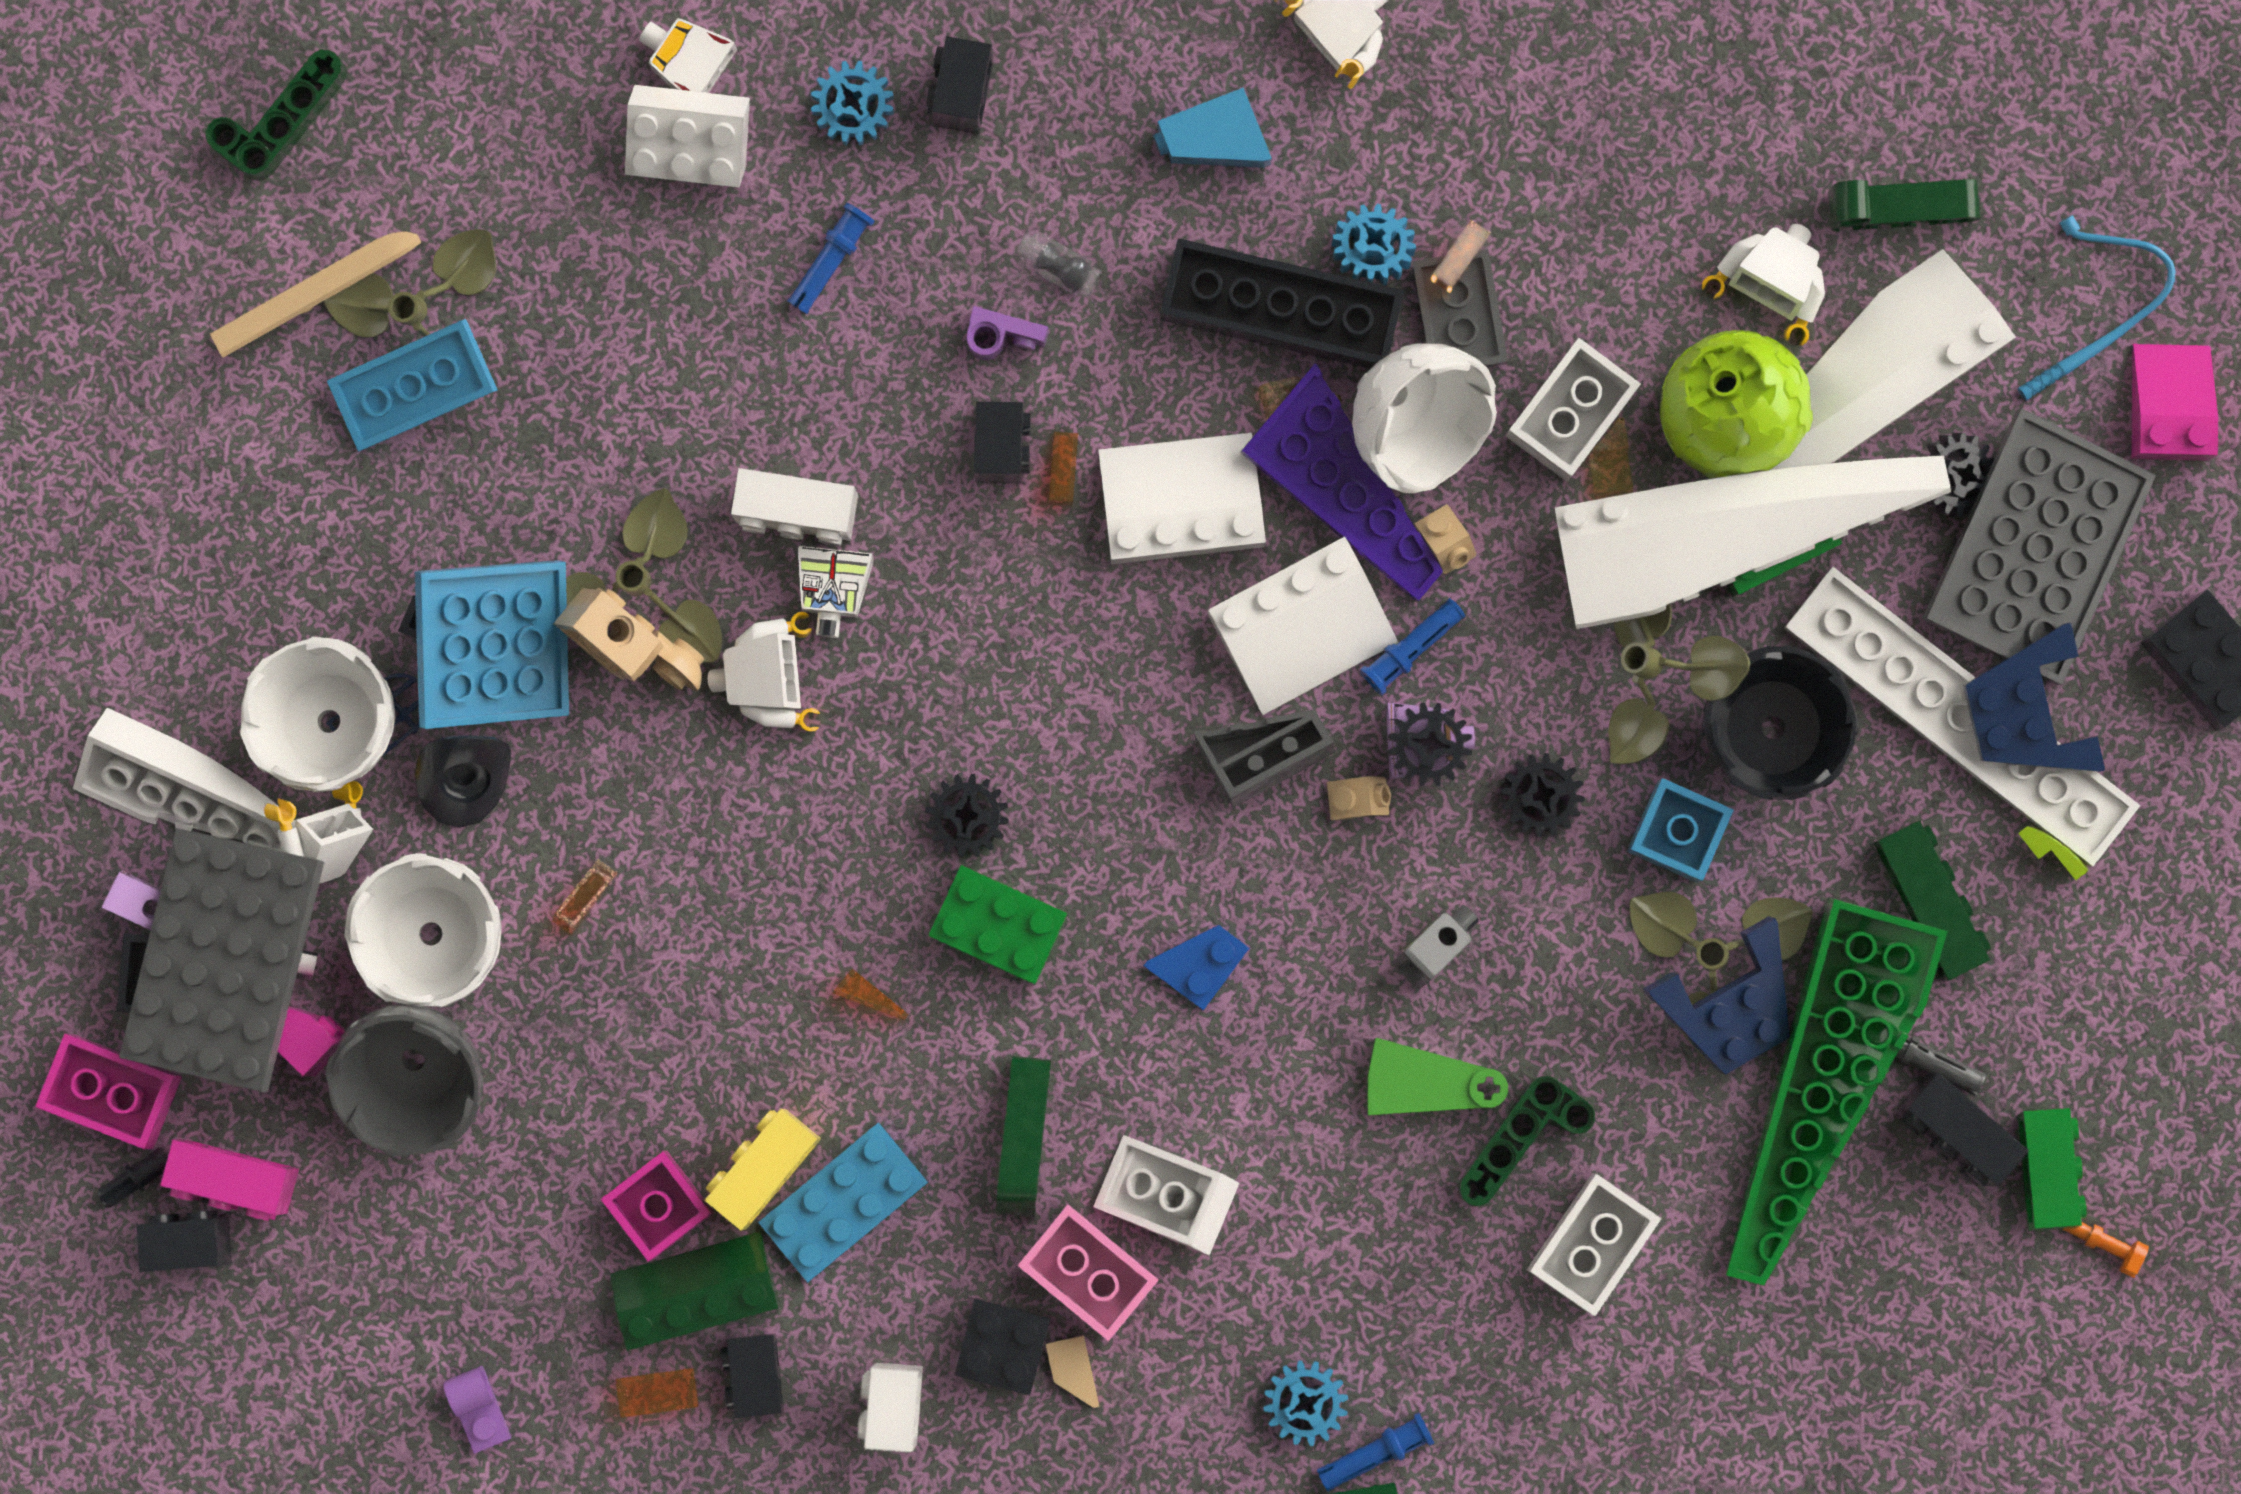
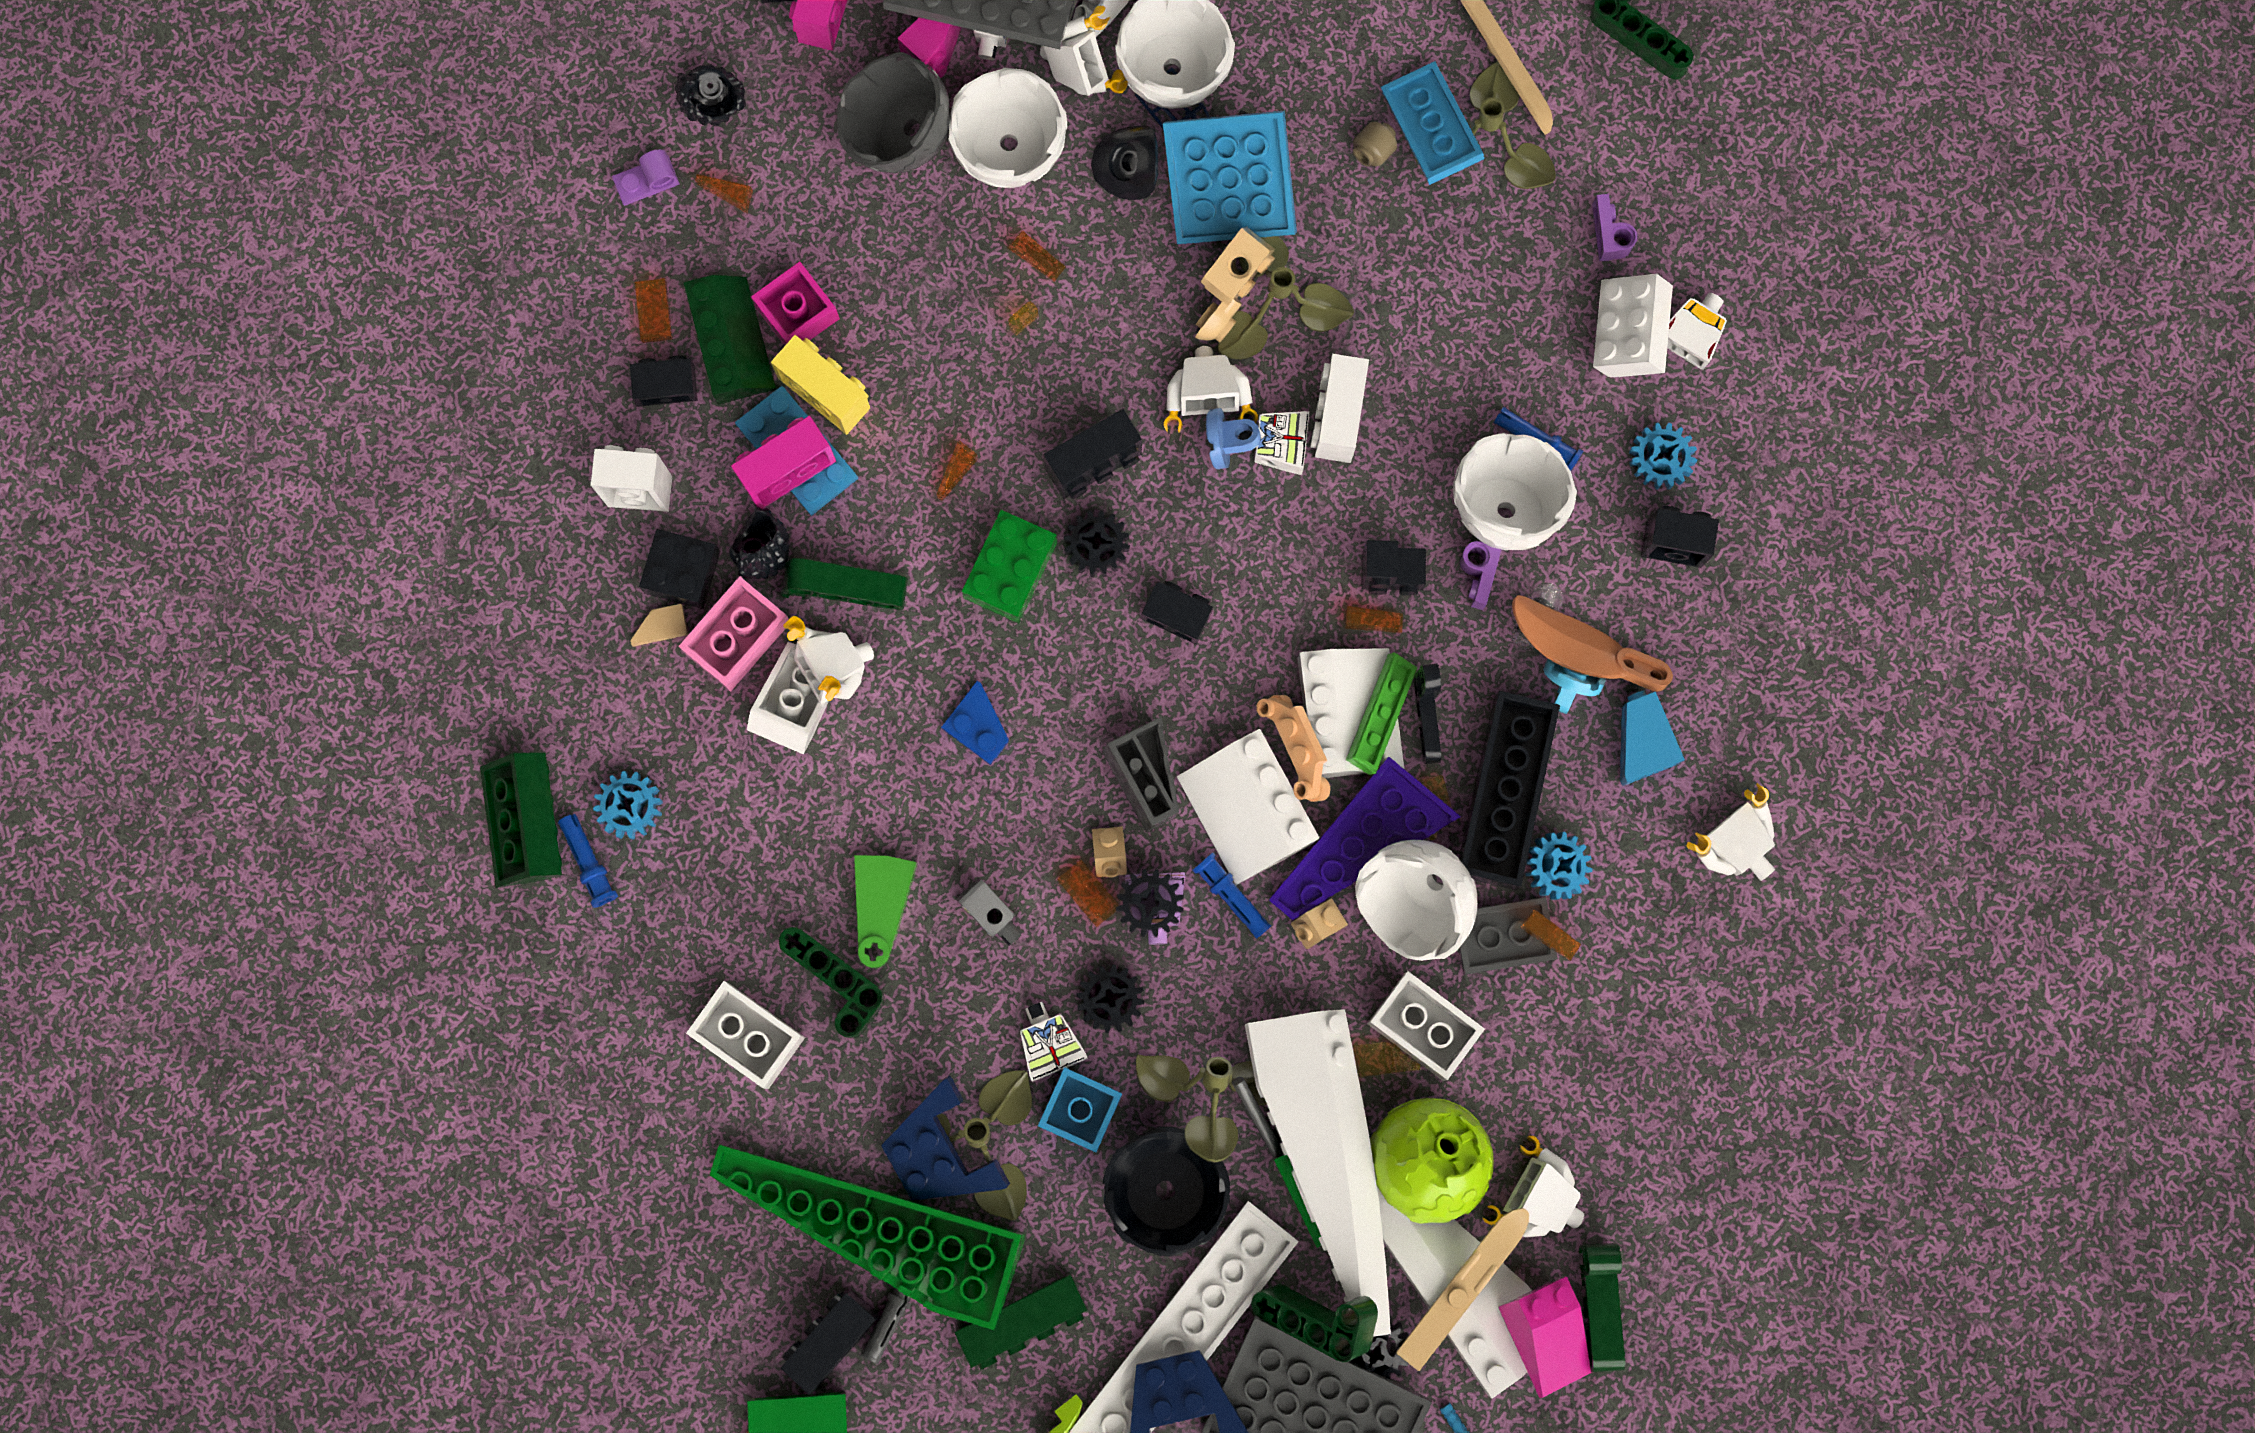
camera: 90 degrees right, 5 degrees down
(374, 1321) = (711, 103): none -> black hair
(437, 459) = (1375, 144): none -> dark tan head
(498, 1292) = (731, 192): none -> clear orange piece
(536, 169) = (1604, 215): none -> medium lavender plate
(670, 912) = (1023, 318): none -> clear yellow tile
(829, 653) = (1224, 437): none -> medium blue tile
(857, 818) = (1093, 455): none -> black brick
(869, 1212) = (783, 462): none -> dark pink brick
(889, 271) = (1518, 476): none -> white piece
(967, 1232) = (760, 546): none -> black hair
(1055, 713) = (1177, 611): none -> black brick
(1102, 205) = (1586, 648): none -> nougat plant
(1124, 1150) = (828, 660): none -> white torso
(1140, 221) = (1571, 683): none -> medium azure tile
(1157, 402) = (1427, 687): none -> black beam
(1185, 458) = (1381, 713): none -> bright green tile
(1225, 560) = (1300, 744): none -> light nougat plate
(1410, 823) = (1088, 893): none -> clear orange plate
(1598, 870) = (1049, 1043): none -> torso
(1685, 614) = (1257, 1116): none -> dark grey bar
(1888, 367) = (1464, 1288): none -> tan piece
(1939, 268) = (1549, 1335): none -> dark pink slope
(1946, 522) = (1336, 1334): none -> dark green beam

